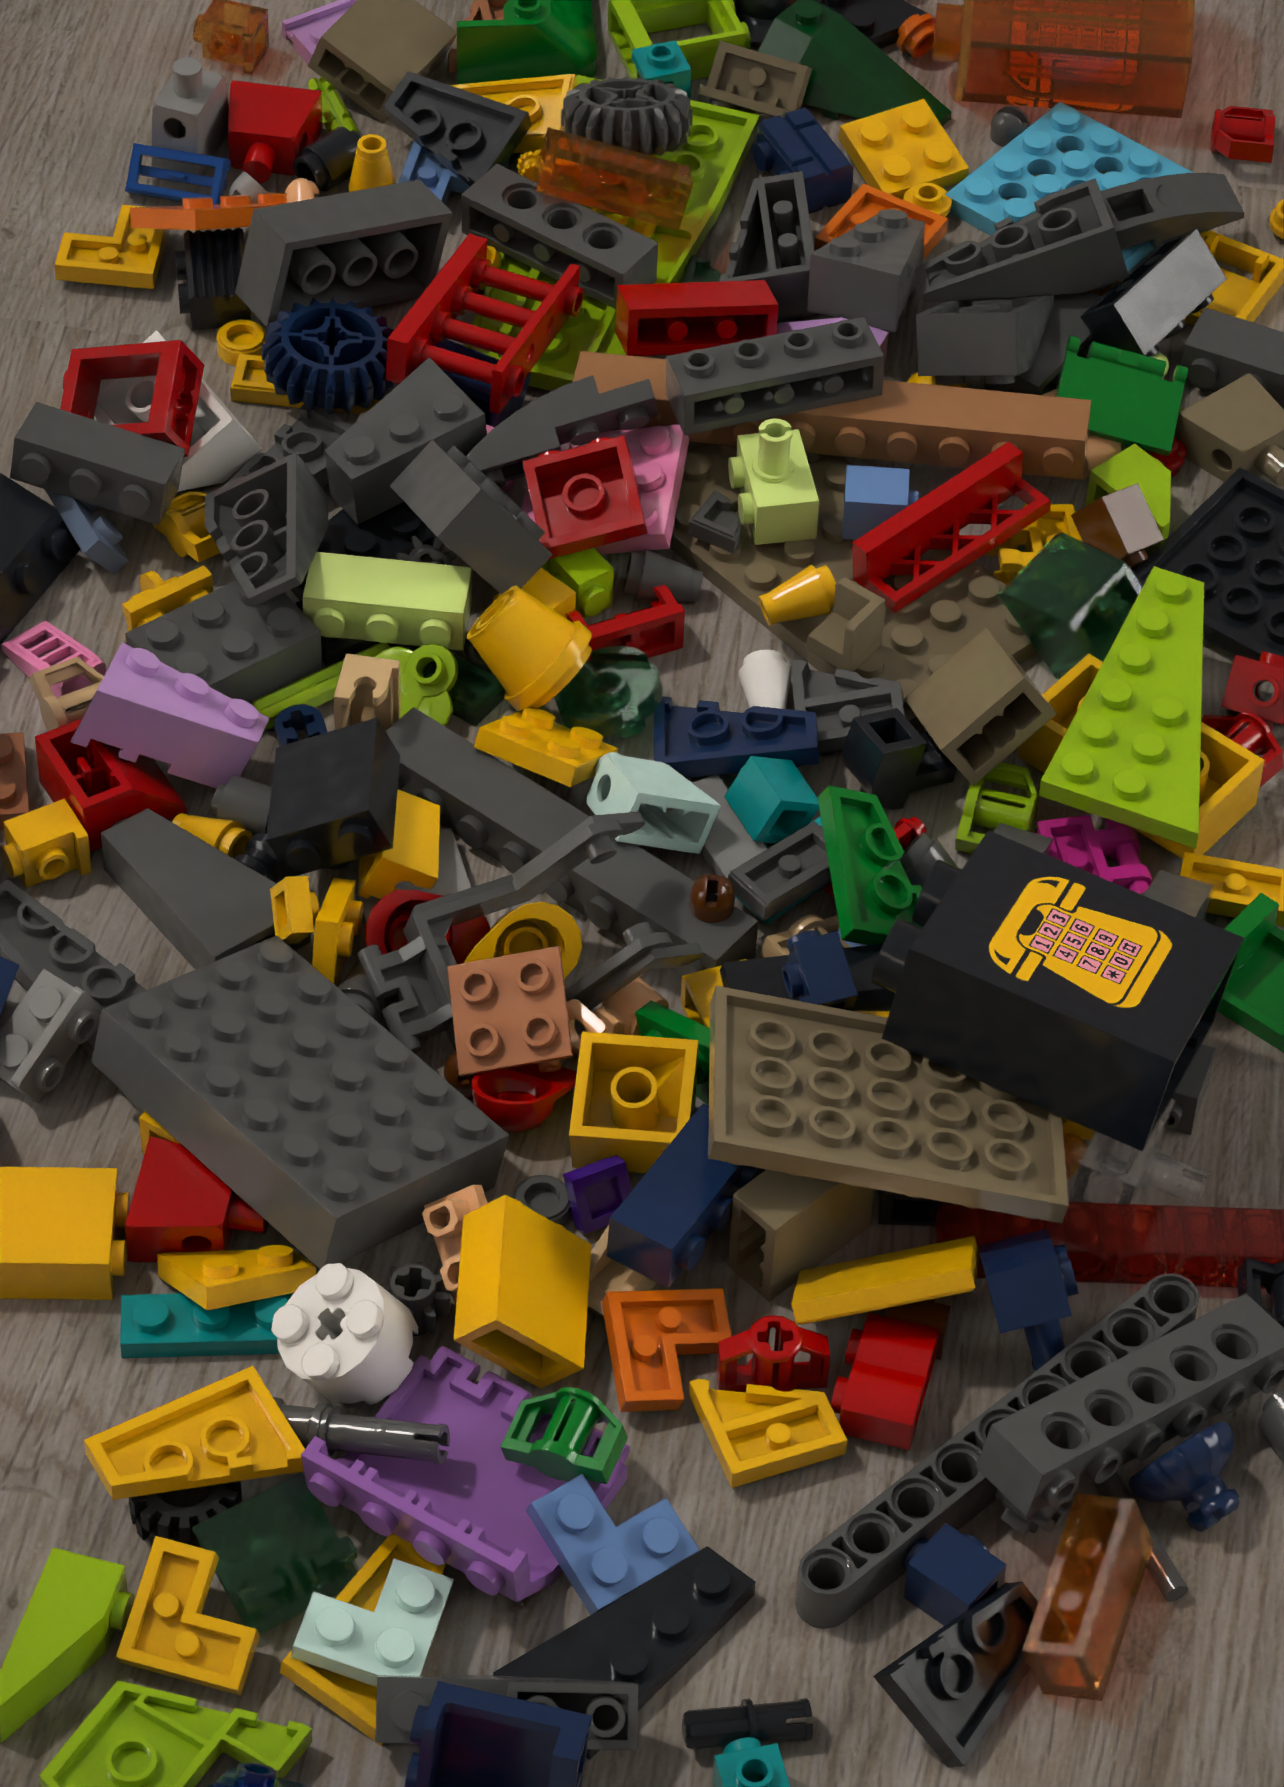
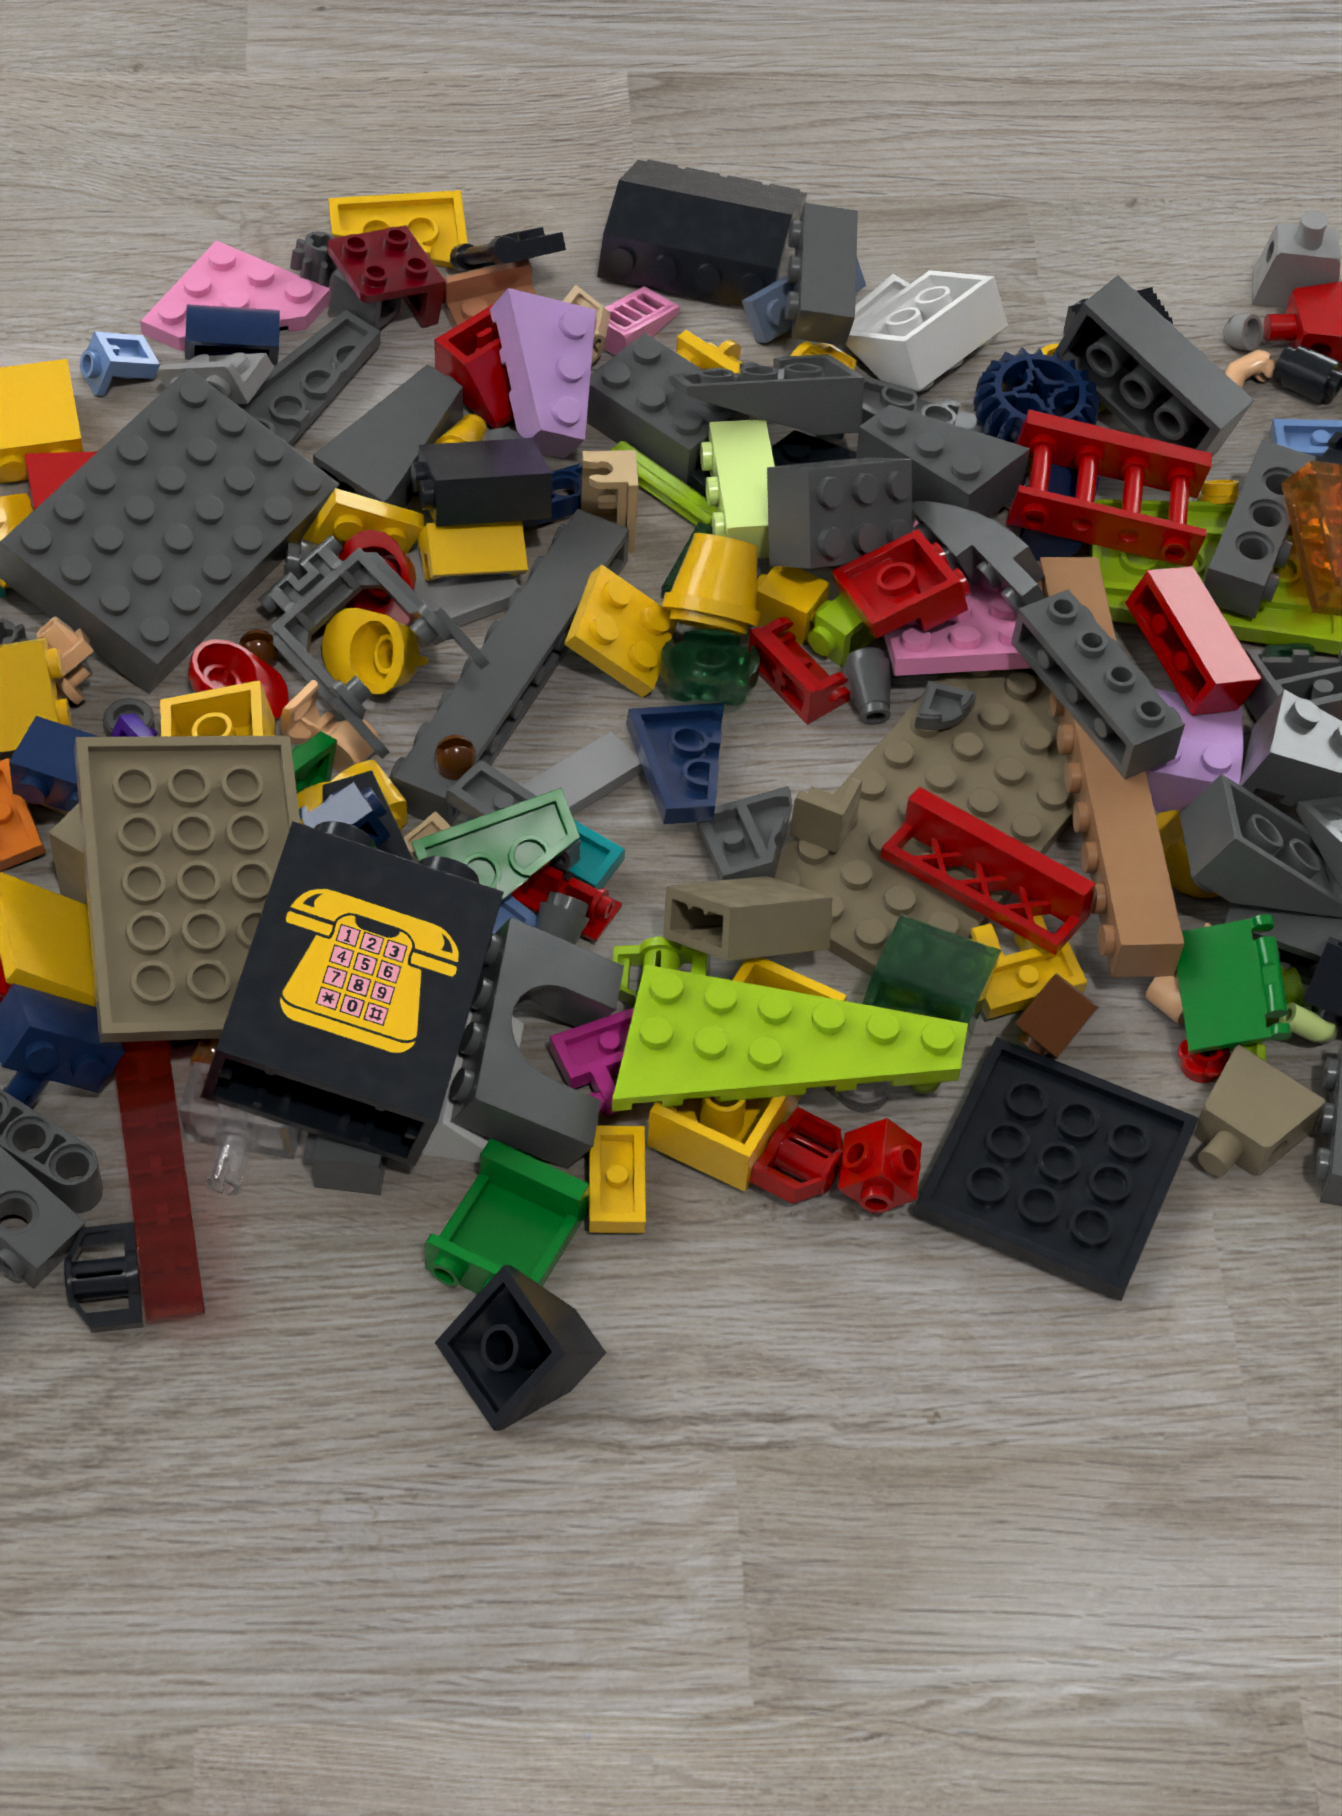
camera: 75 degrees right, 5 degrees up
(45, 844) = (415, 339): yellow brick -> none
(125, 259) = (1113, 254): yellow plate -> none
(175, 388) = (886, 290): red window -> none
(202, 214) = (1183, 307): orange wing -> none
(217, 183) = (1254, 285): blue tile -> none
(293, 909) = (359, 477): yellow plate -> none
(371, 164) = (1301, 395): yellow cone -> none
(425, 694) = (666, 536): lime plate -> none
(510, 1012) = (288, 641): nougat hinge -> none
(650, 788) = (567, 702): light aqua torso -> none
(766, 679) = (756, 777): white cone -> none
(771, 799) = (612, 798): teal brick -> none
(774, 484) = (993, 730): yellowish green brick -> none
(800, 597) = (876, 776): yellow cone -> none
(873, 497) = (1002, 802): medium blue brick -> none
(893, 757) = (673, 857): black brick -> none
(1134, 467) = (1123, 1035): lime slope -> none

